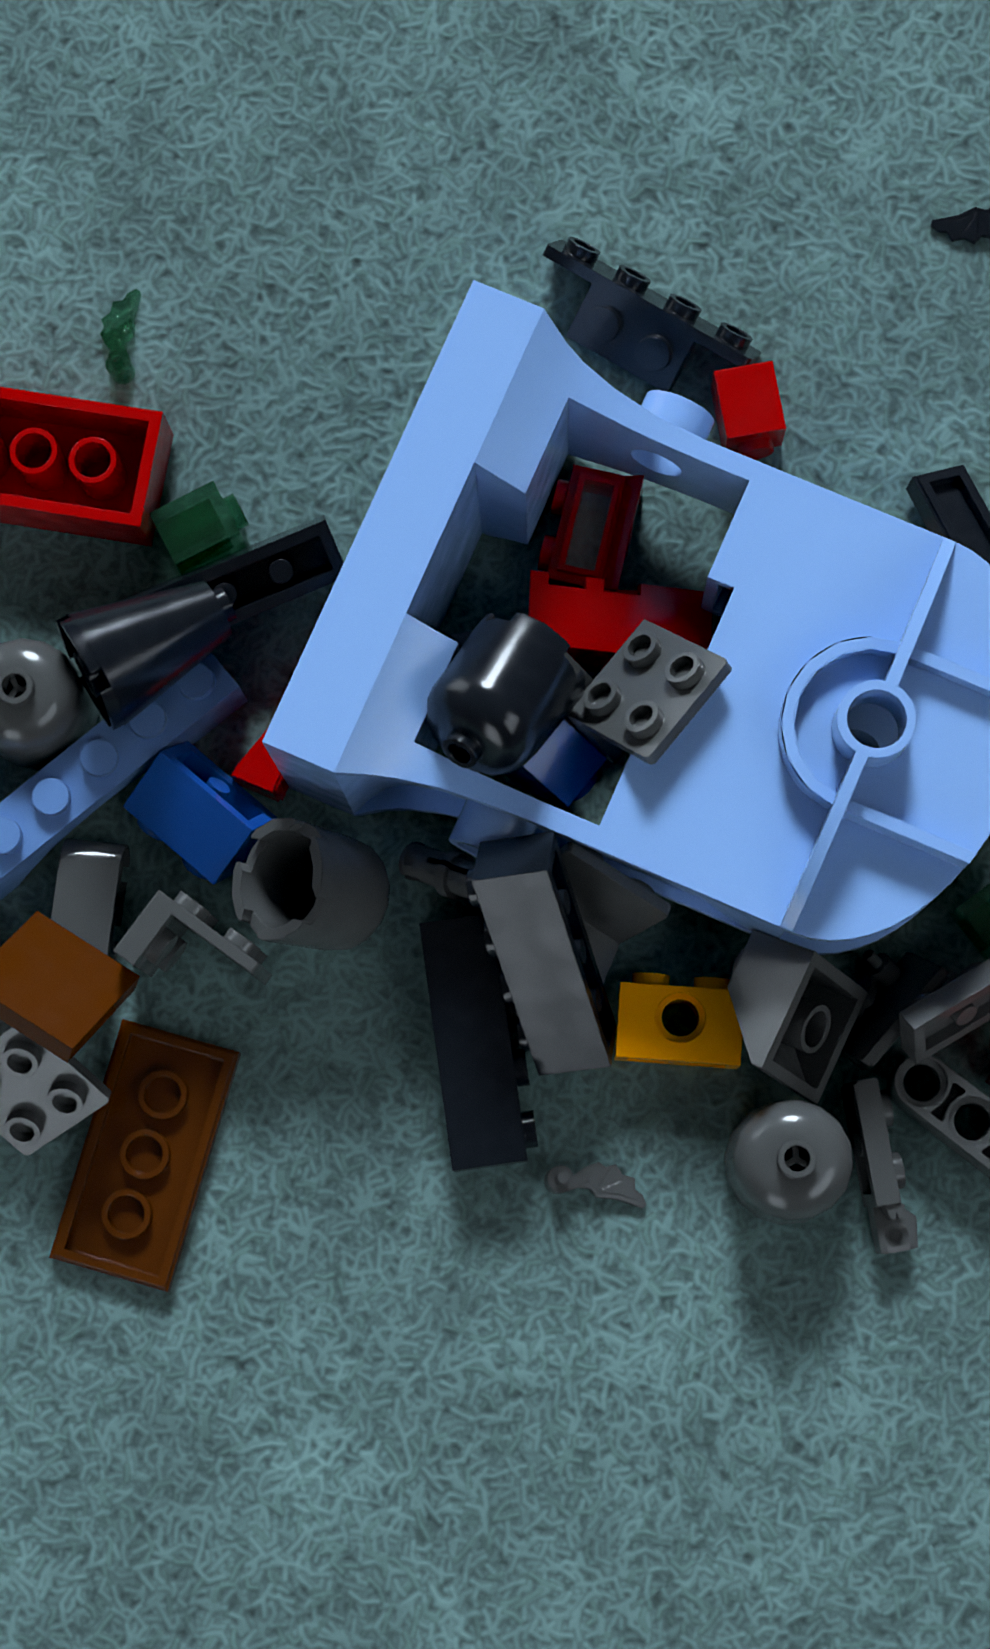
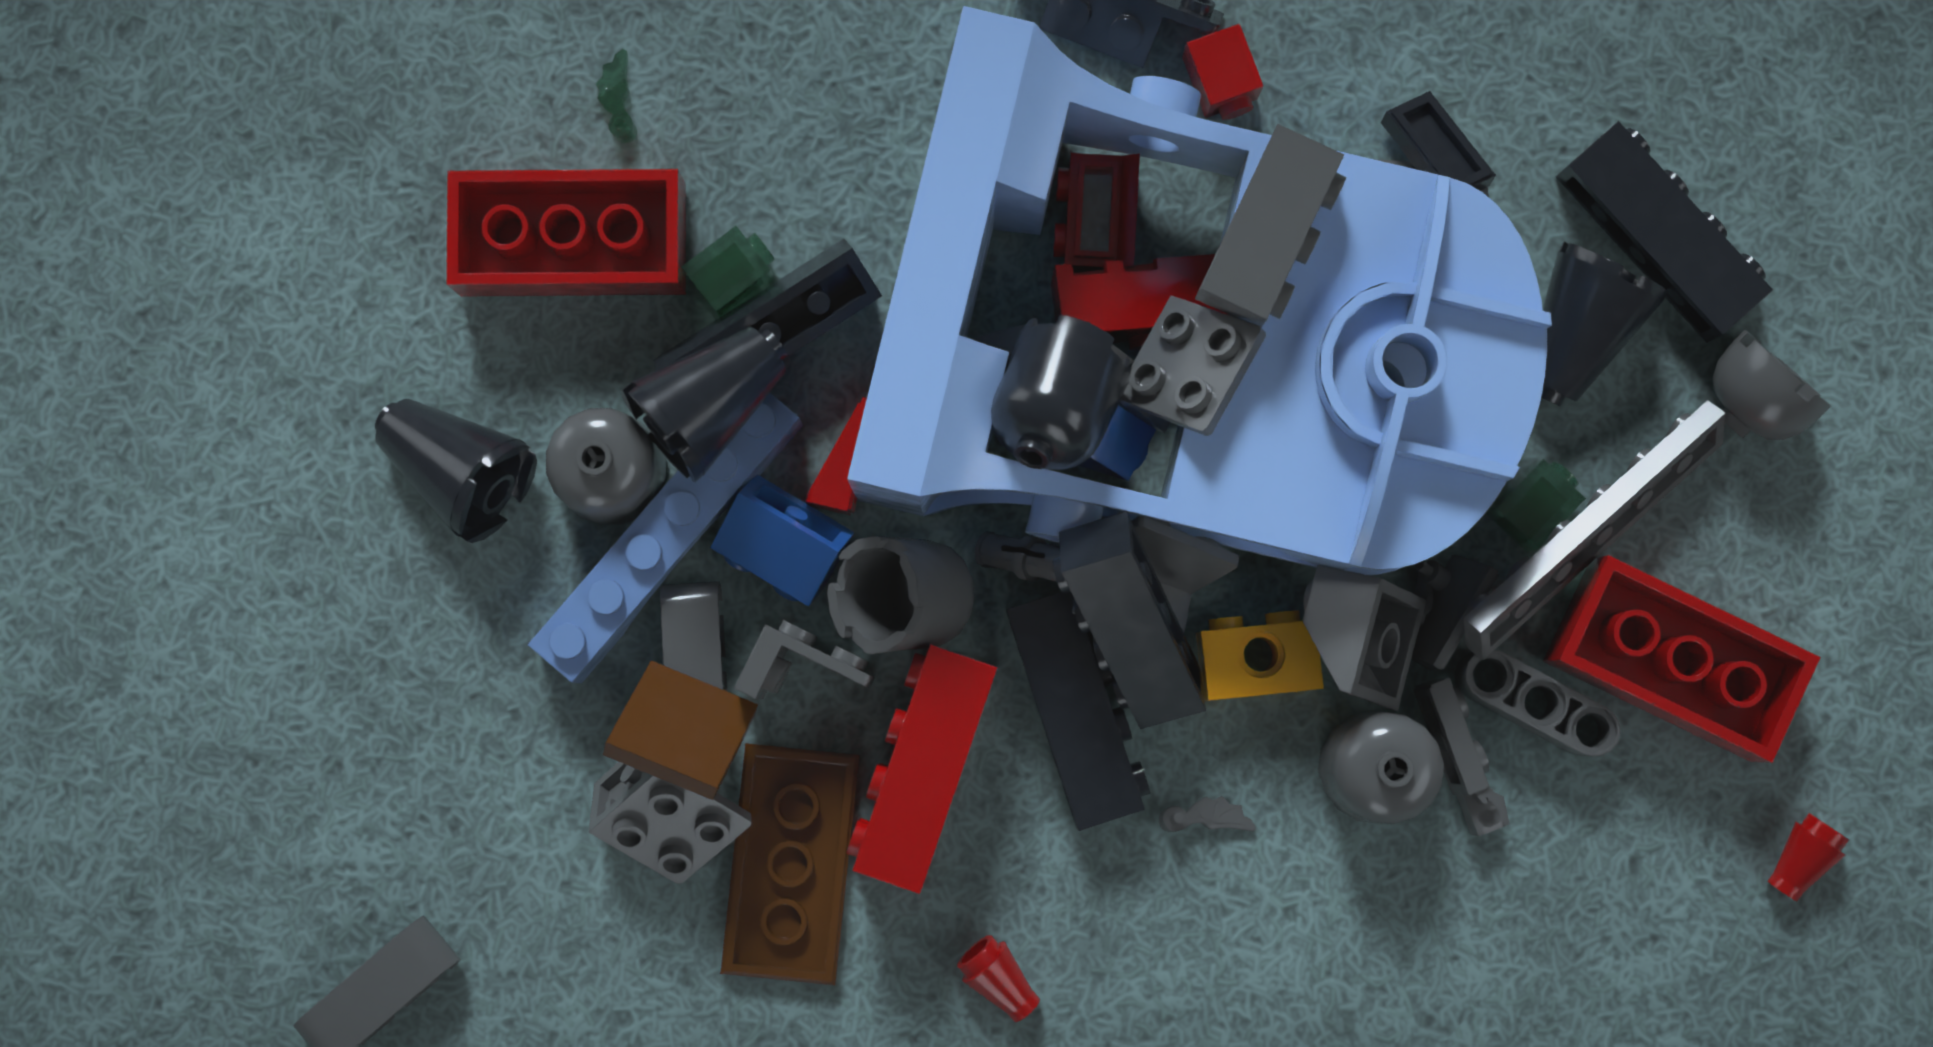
camera: 20 degrees left, 5 degrees up
(300, 1073) = (924, 768): none -> red brick
(341, 1315) = (997, 977): none -> red cone
(756, 560) = (1272, 228): none -> dark grey brick

